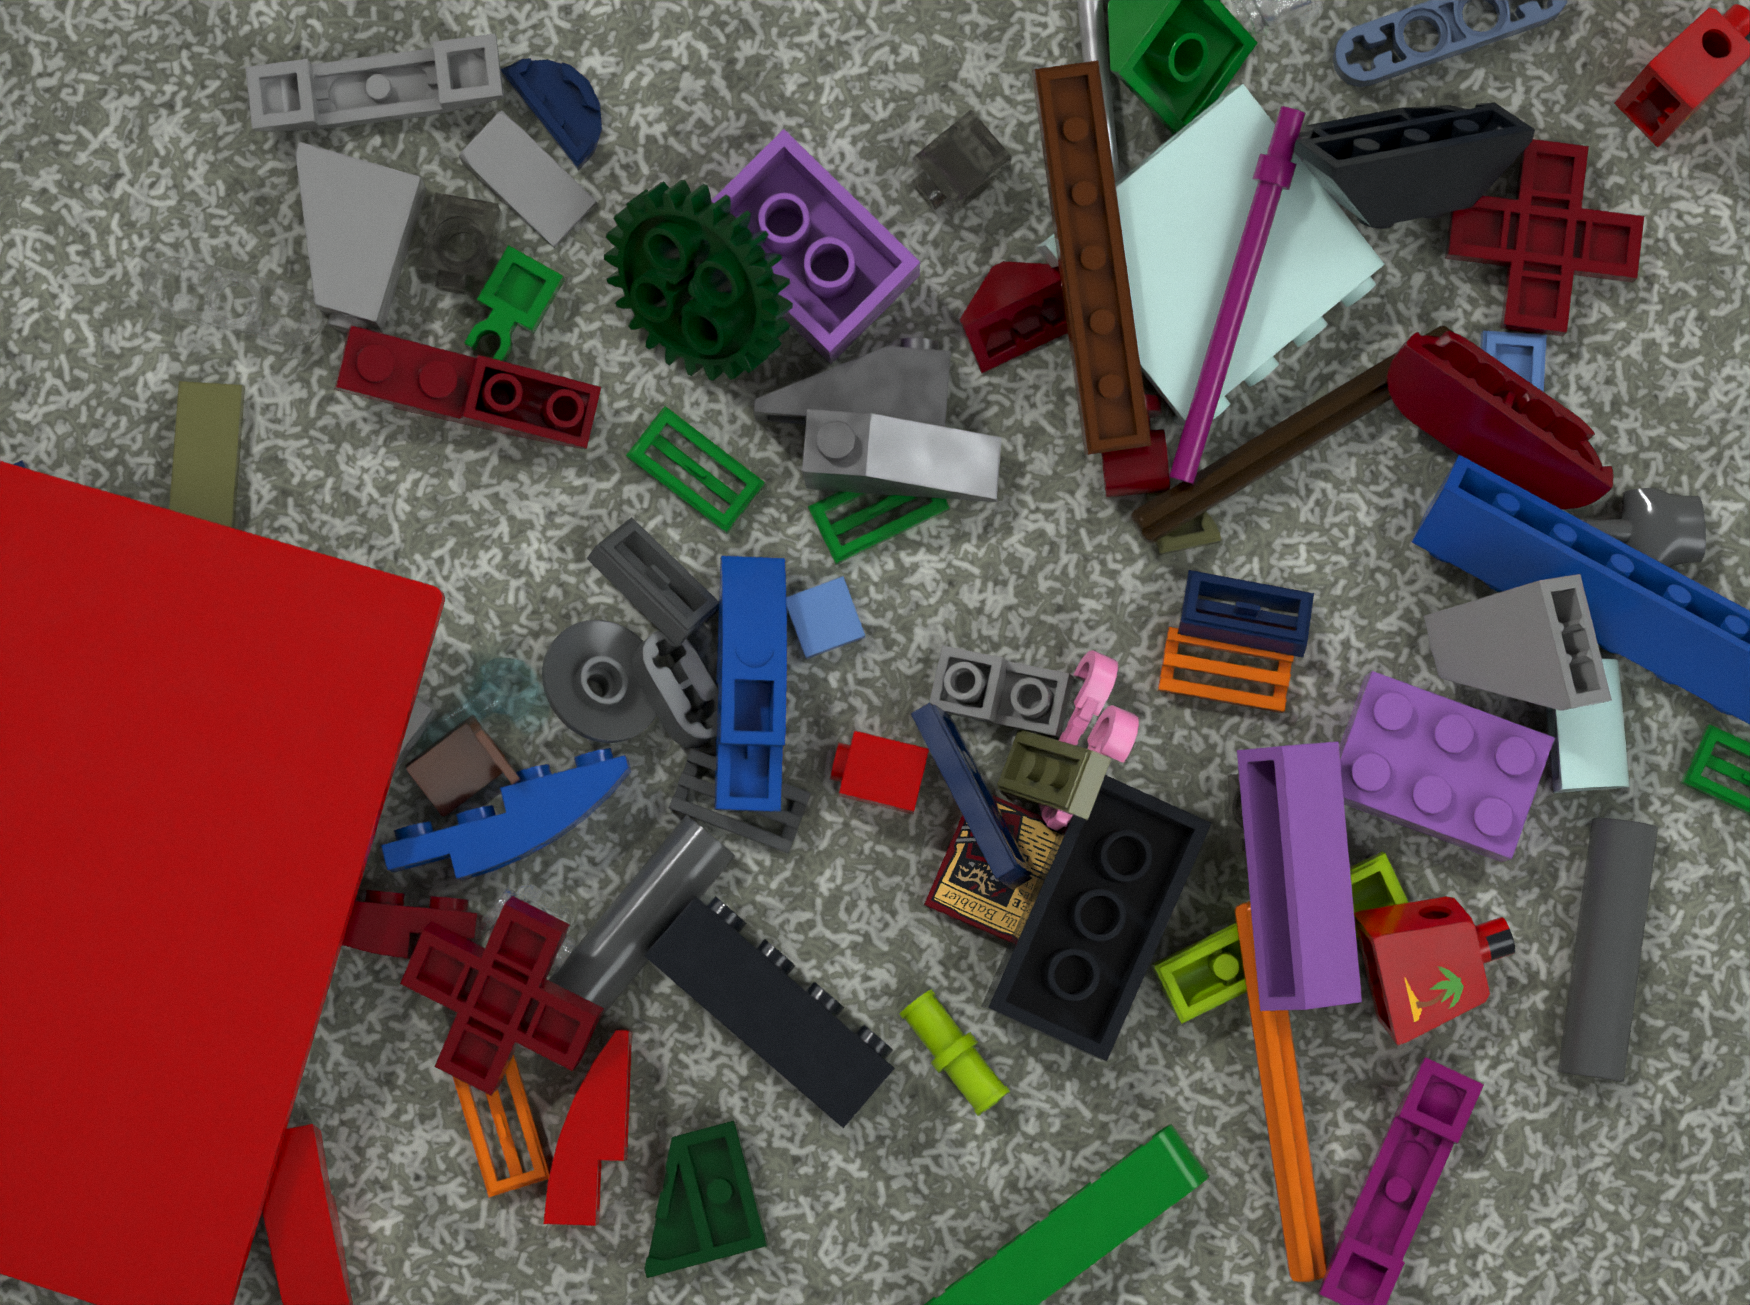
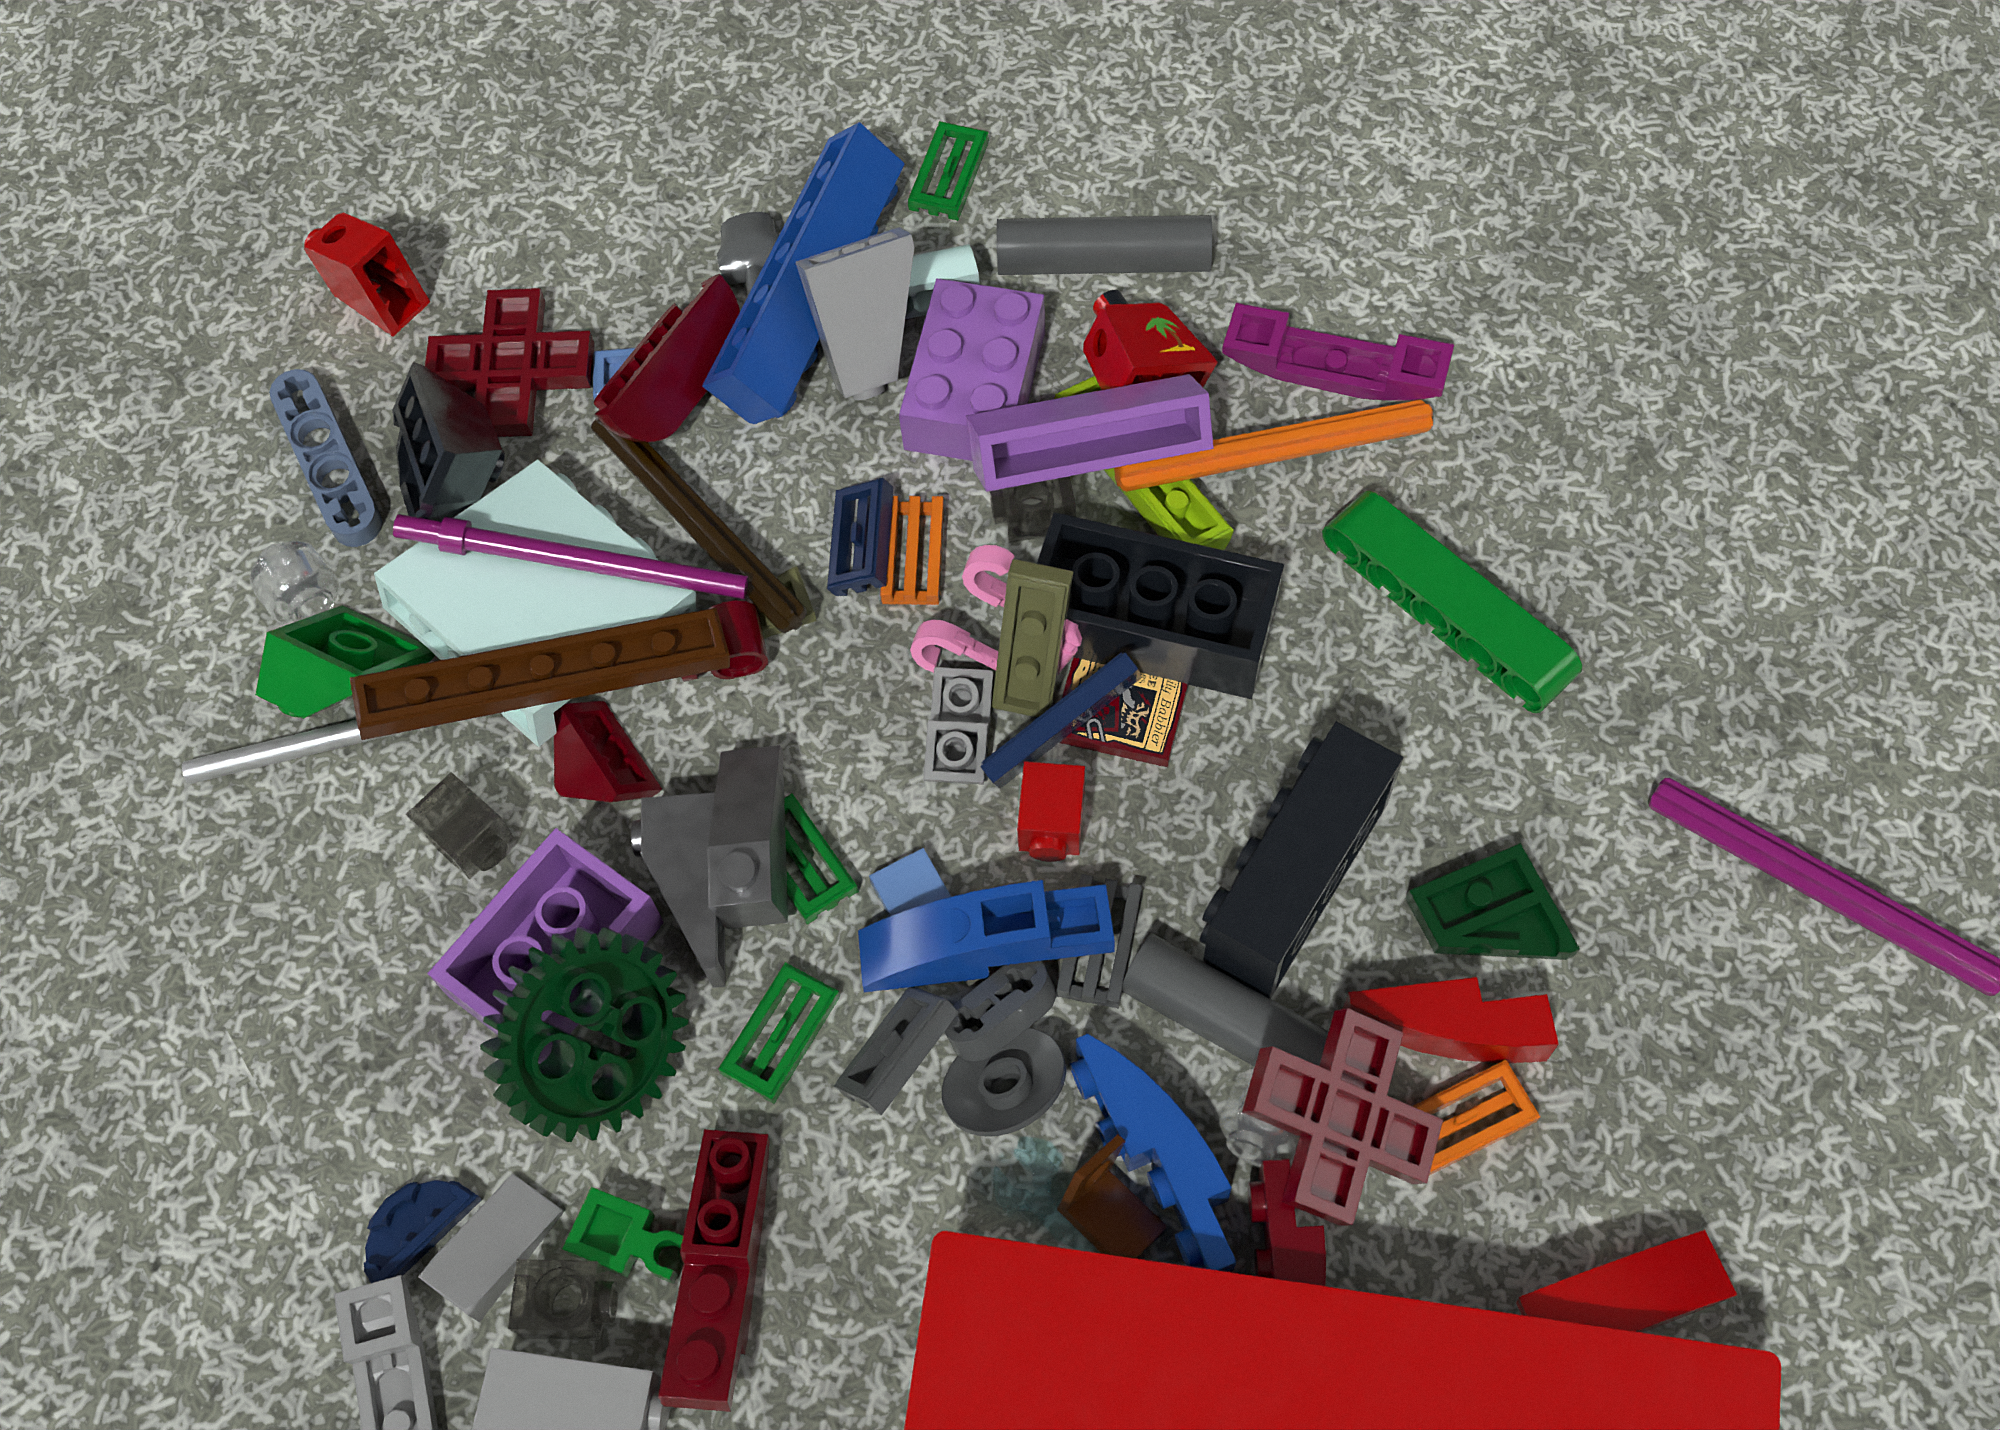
camera: 95 degrees left, 20 degrees down
(954, 1052) = (1299, 714): lime pin -> none

